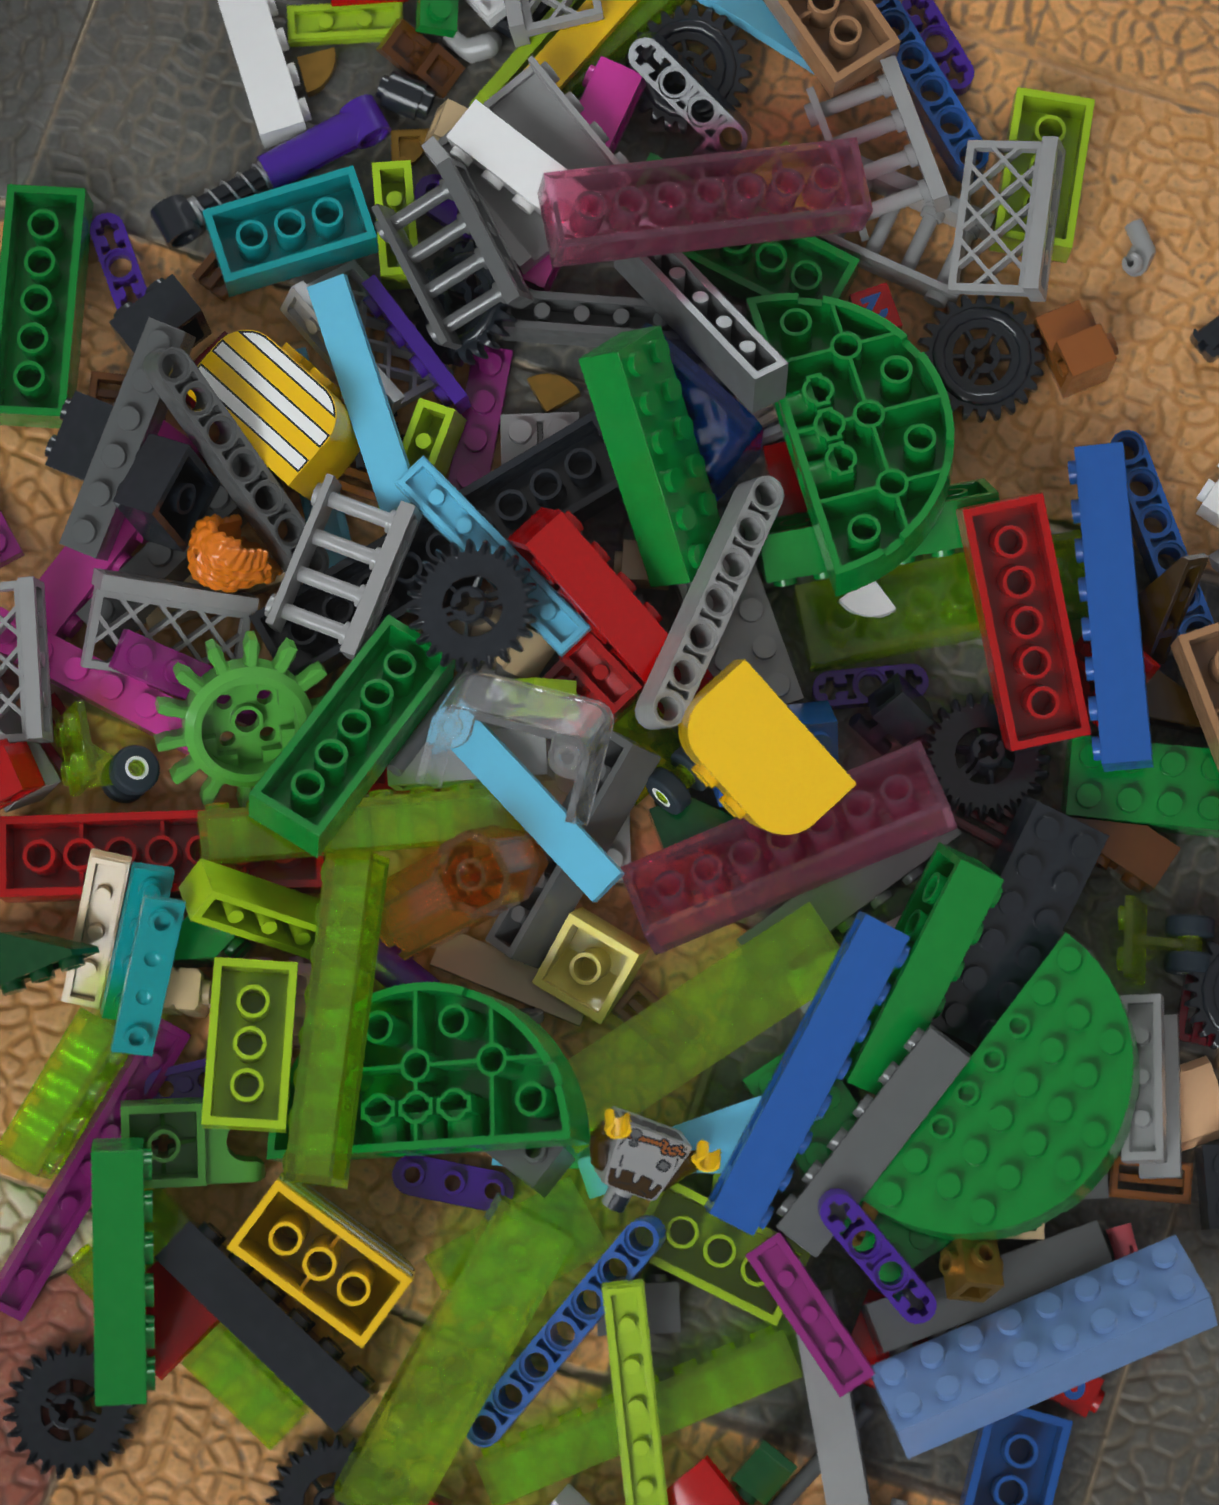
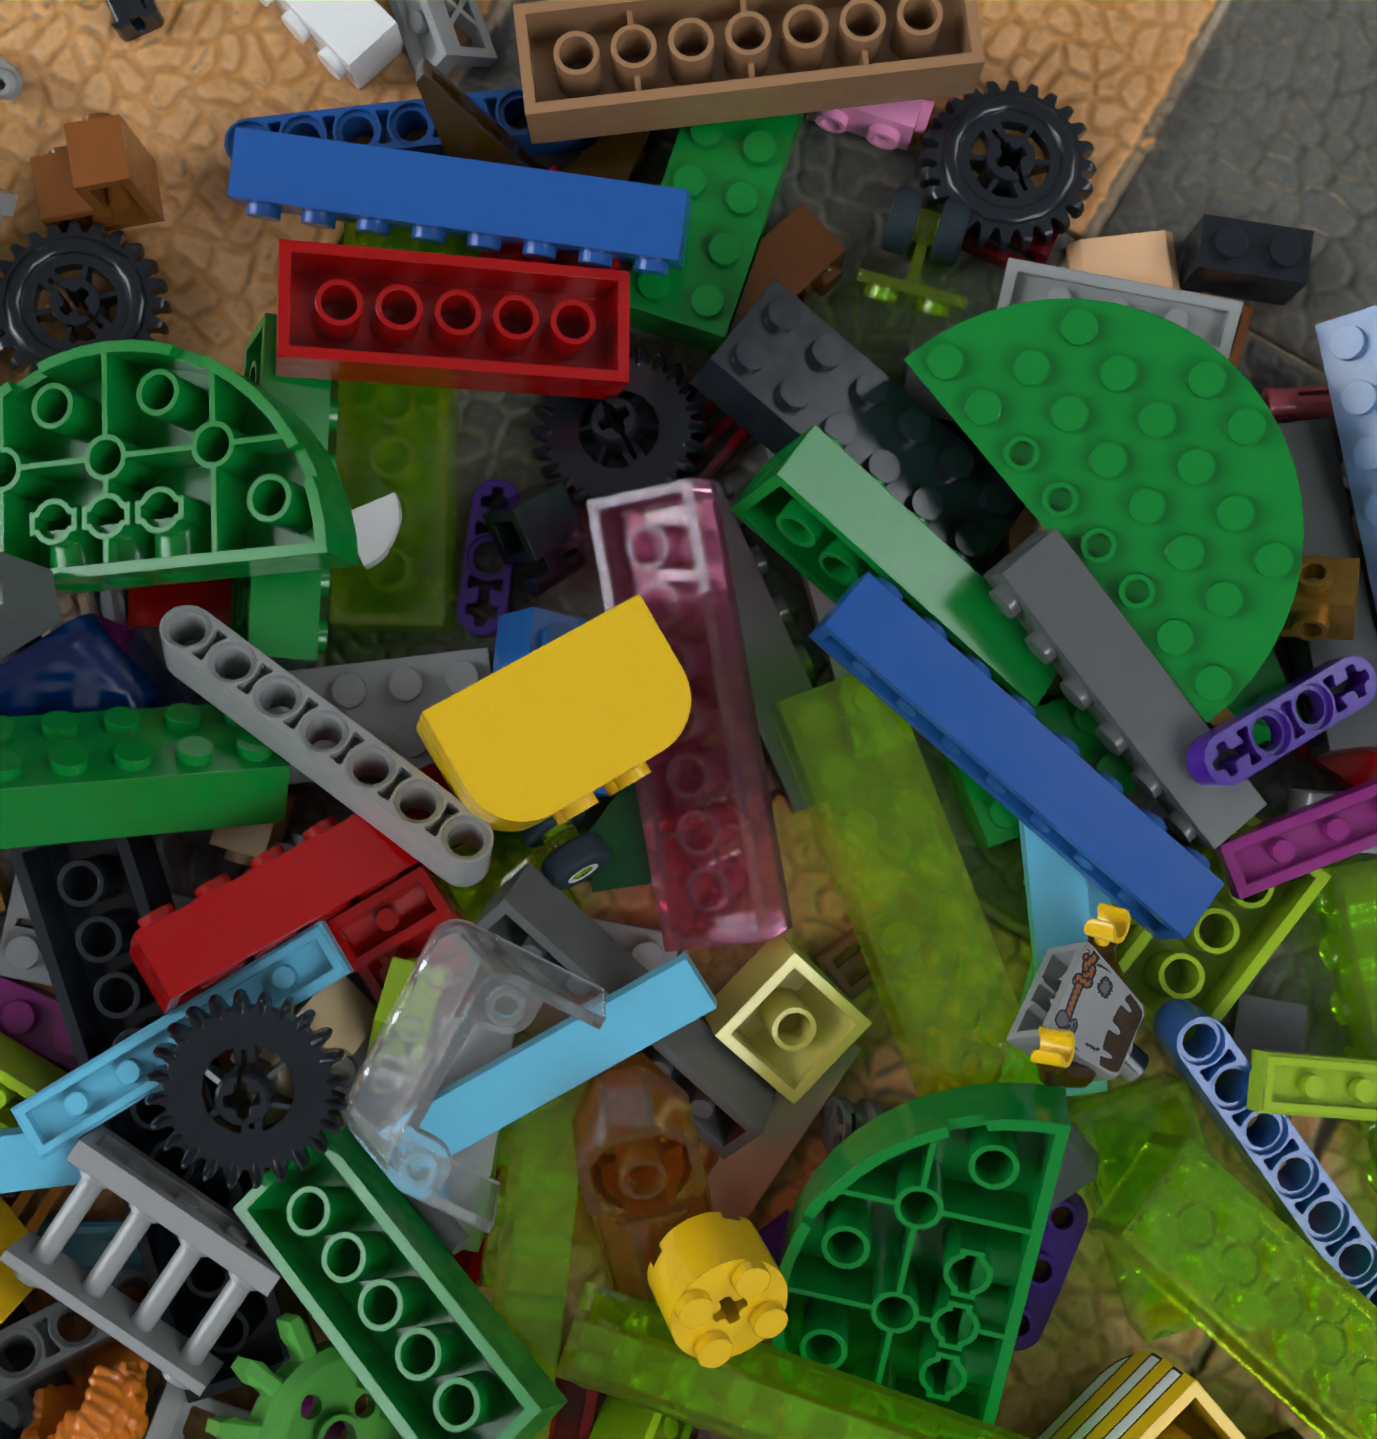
camera: 80 degrees left, 5 degrees up
(408, 942) = (718, 1287): none -> yellow brick

